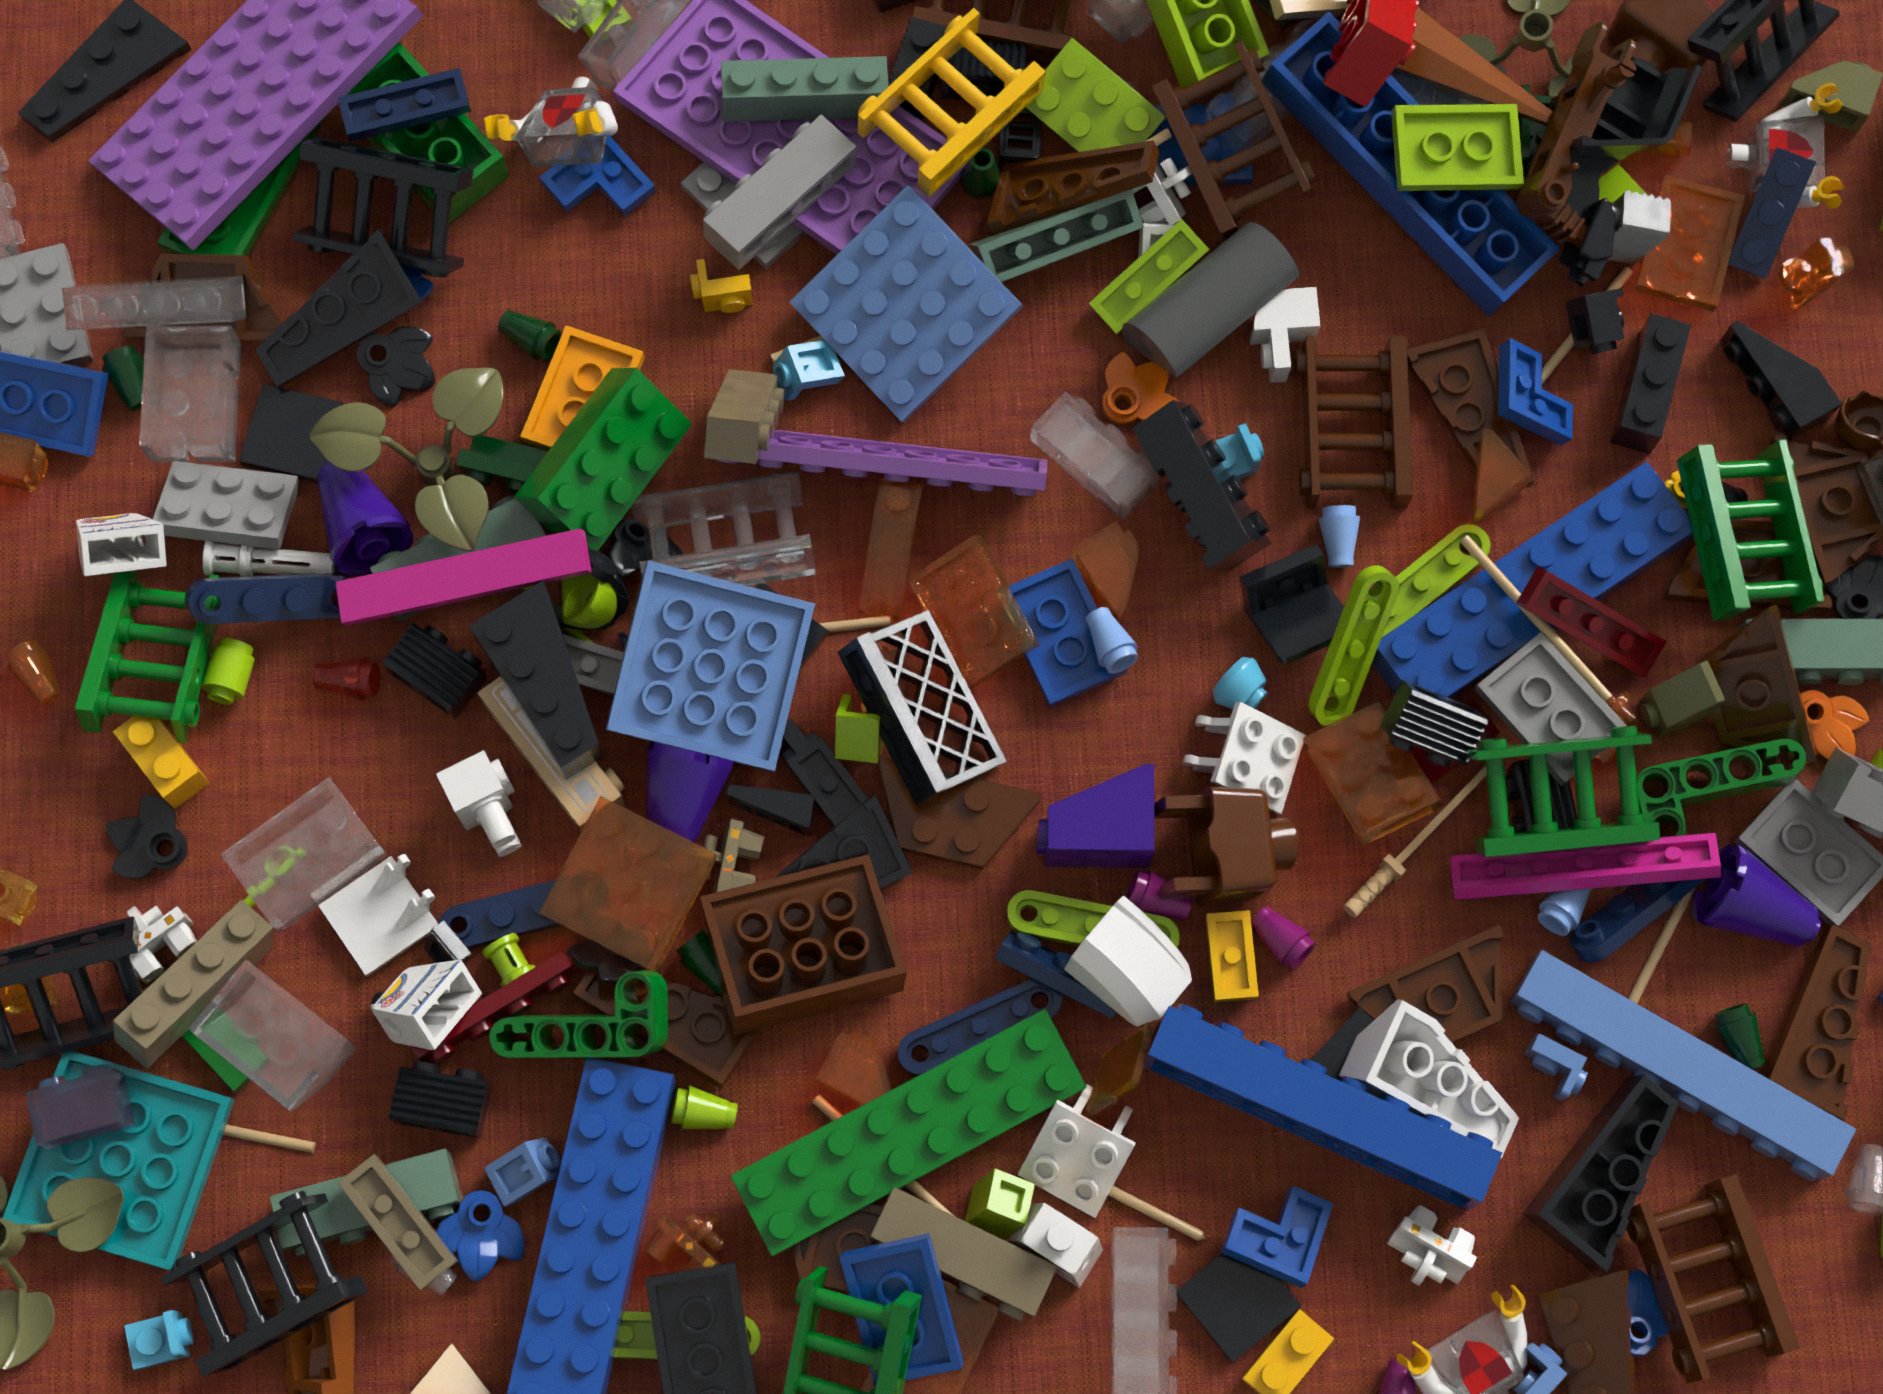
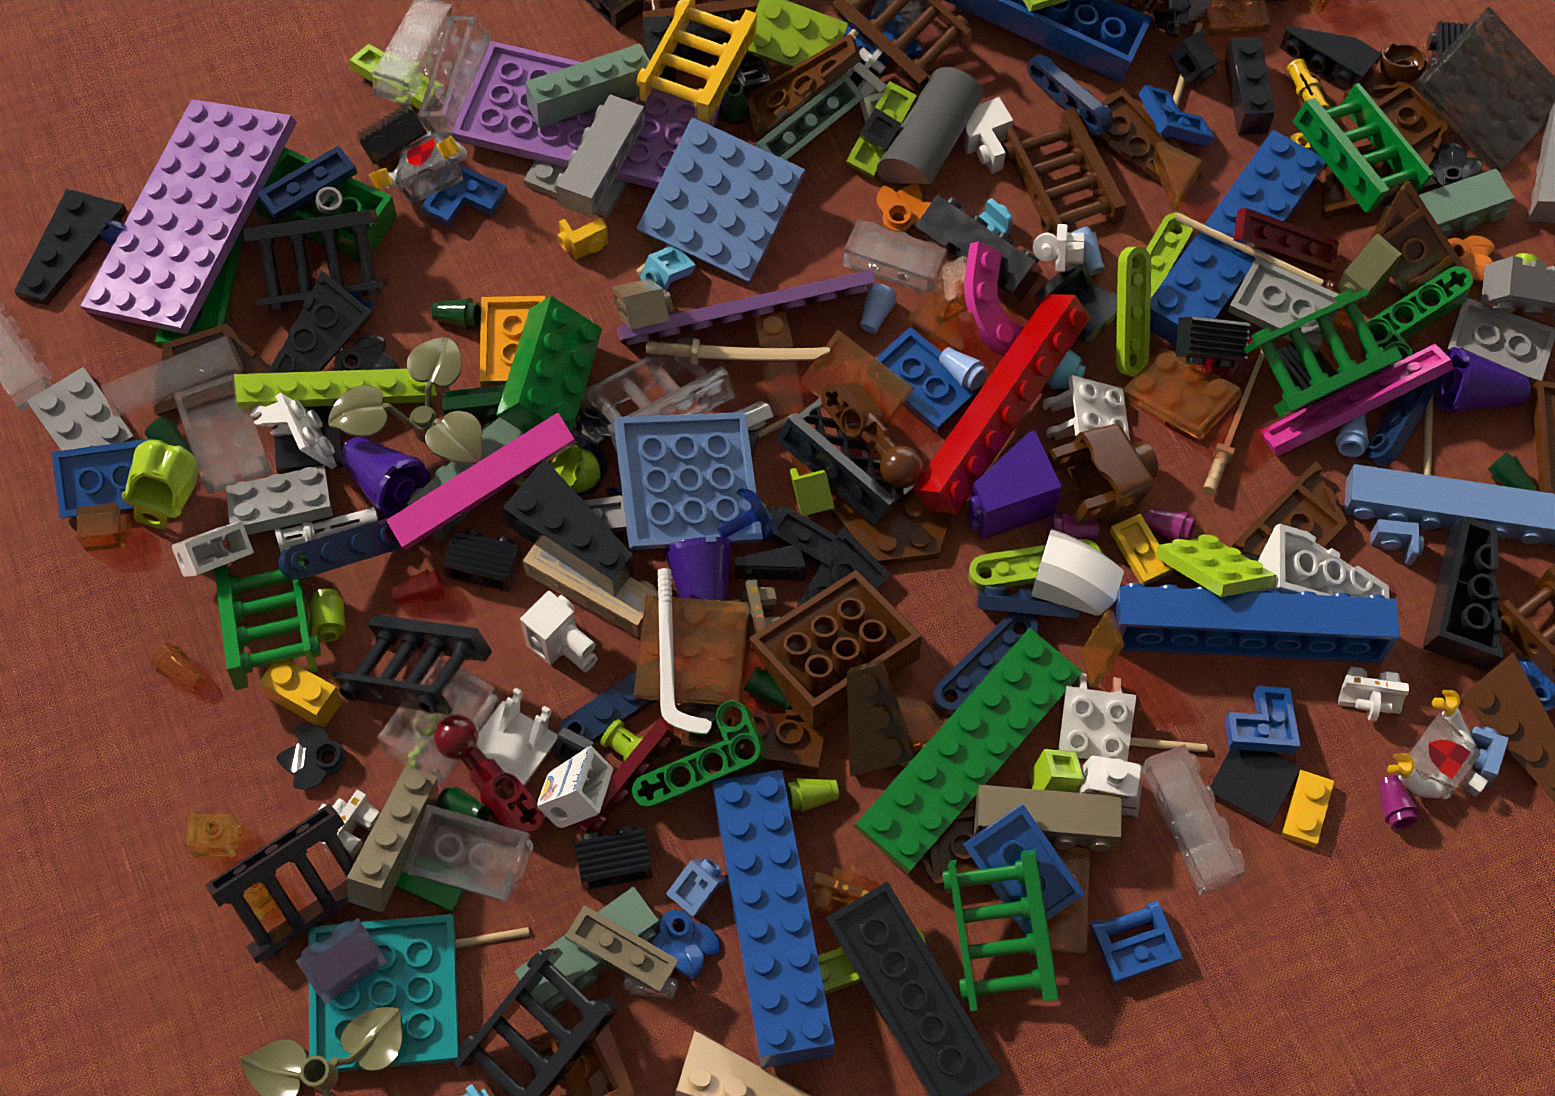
camera: 20 degrees left, 10 degrees down
(91, 434) = (160, 481): none -> lime piece
(161, 76) = (113, 231): none -> clear blue hinge
(282, 427) = (299, 422): none -> white plate
(290, 969) = (461, 802): none -> dark green cone
(310, 745) = (412, 637): none -> black fence
(310, 893) = (458, 739): none -> dark red beam
(327, 381) = (326, 387): none -> lime plate
(415, 132) = (323, 197): none -> light grey hinge
(539, 65) = (391, 133): none -> black brick
(572, 938) = (667, 690): none -> white piece
(774, 742) = (758, 512): none -> clear blue plant
(792, 500) = (734, 353): none -> tan sword
(806, 1058) = (875, 721): none -> dark brown wing
(831, 603) = (756, 415): none -> white plate
(956, 666) = (862, 418): none -> reddish brown beam
(1044, 515) = (877, 306): none -> light blue cone
(1137, 706) = (1001, 403): none -> red brick
(1142, 281) = (880, 130): none -> black plate
(1146, 535) = (949, 290): none -> clear orange slope
(1166, 577) = (982, 299): none -> dark pink plate
(1304, 1020) = (1215, 565): none -> lime plate
(1306, 527) = (1064, 247): none -> white hips
(1406, 305) = (1070, 94): none -> dark blue plate
(1728, 413) = (1301, 74): none -> yellow pin

